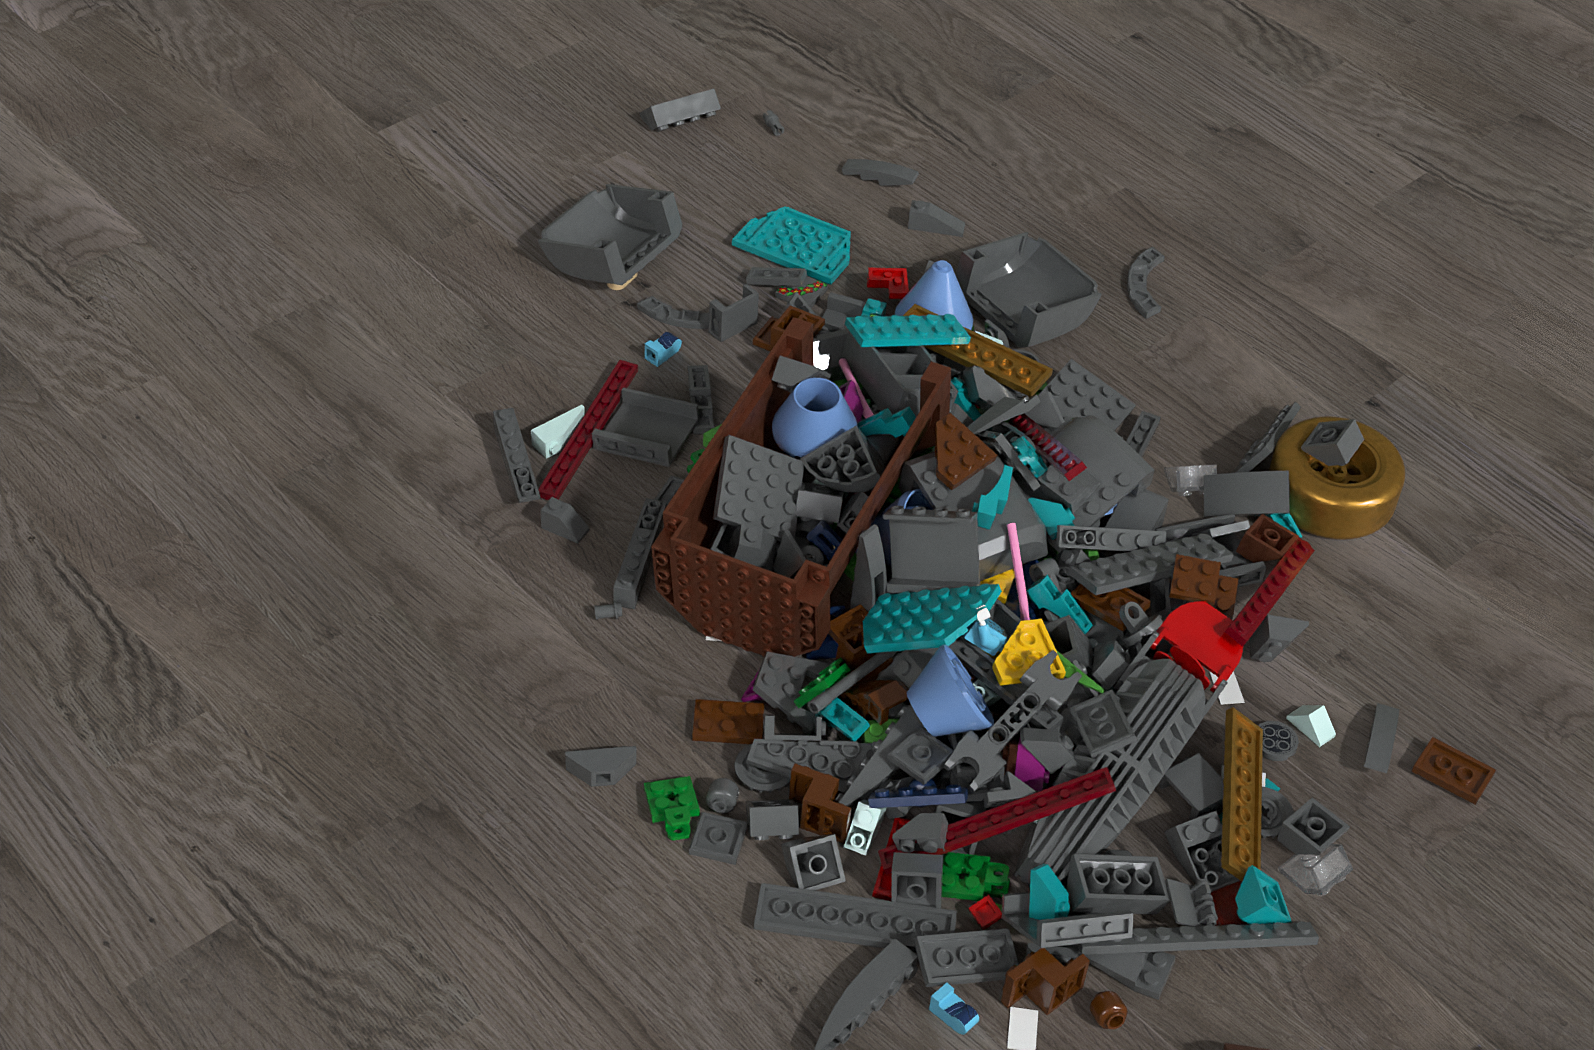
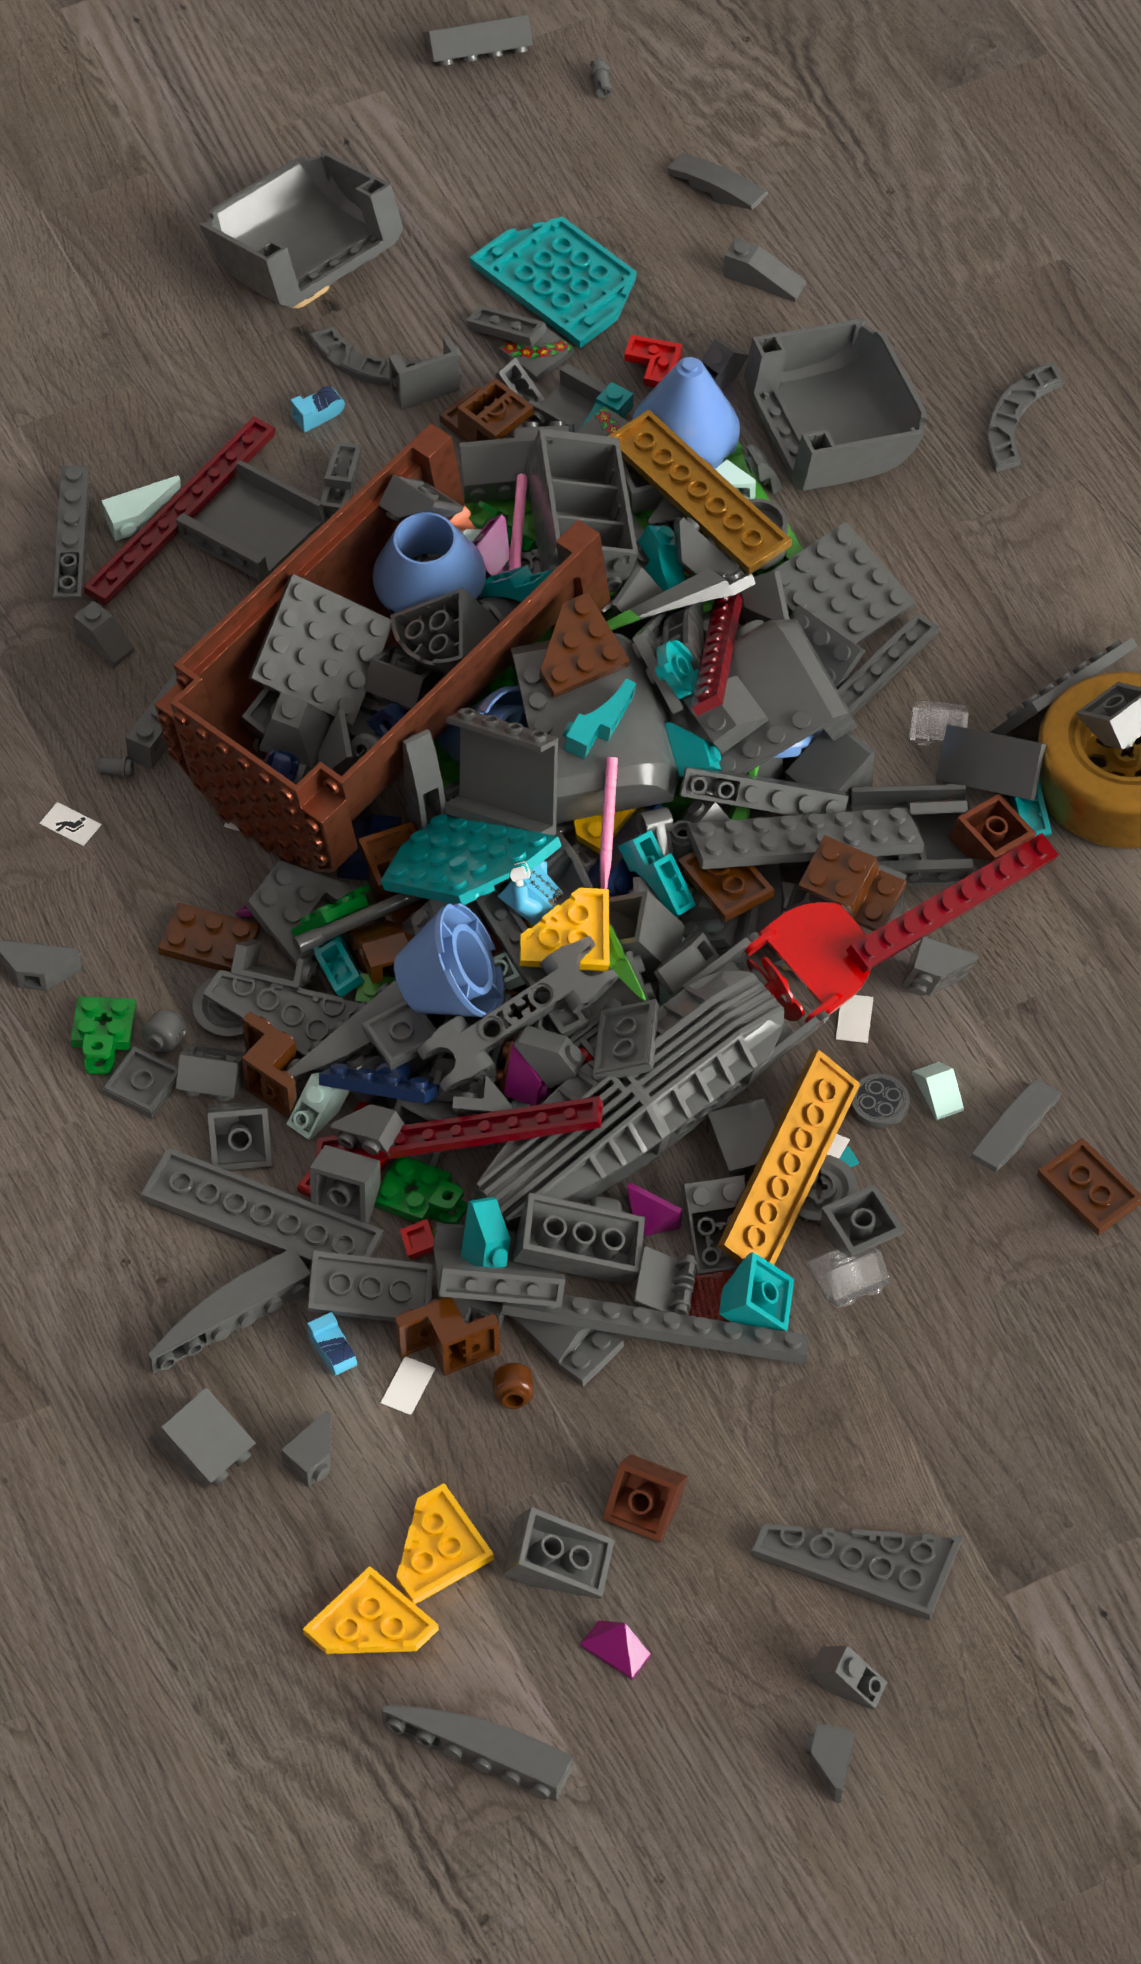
camera: 20 degrees right, 10 degrees up
(587, 659) = (70, 824): none -> white sticker
(907, 330) = (610, 453): teal plate -> none
(1139, 625) = (746, 919): dark grey tile -> none
(1146, 847) = (658, 1213): none -> magenta slope

